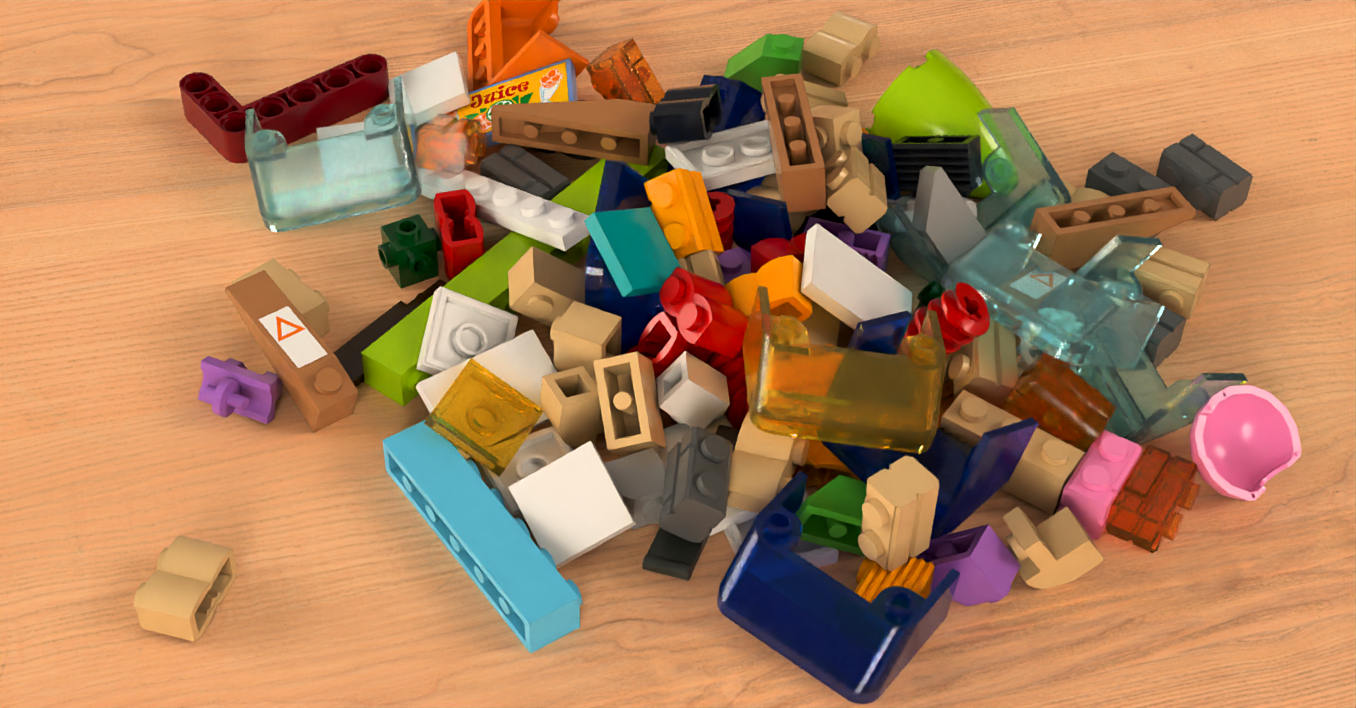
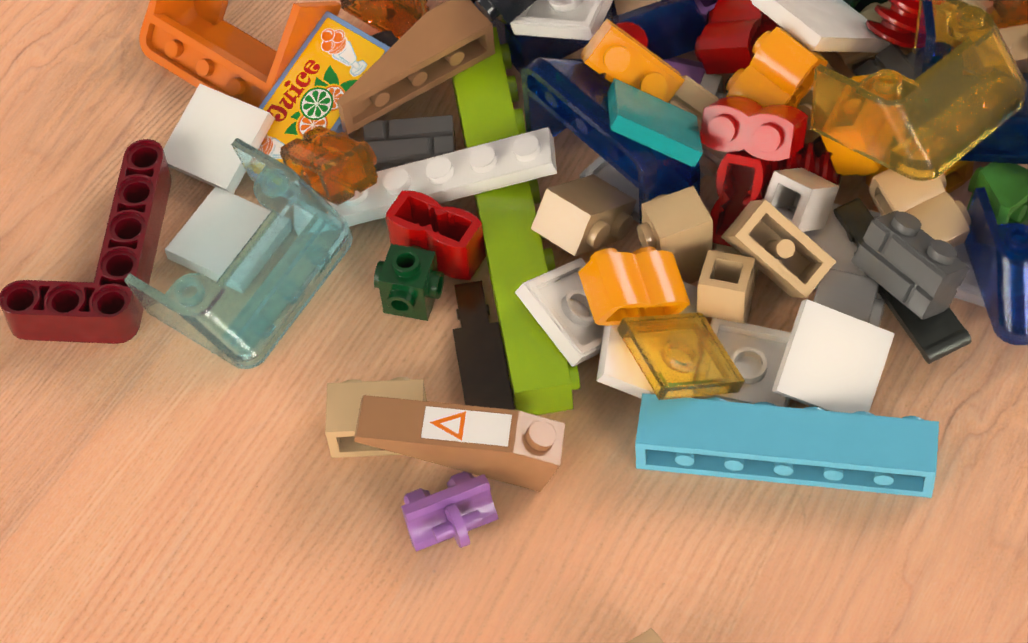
camera: 40 degrees left, 10 degrees up
(504, 344) = (632, 285): none -> light orange brick

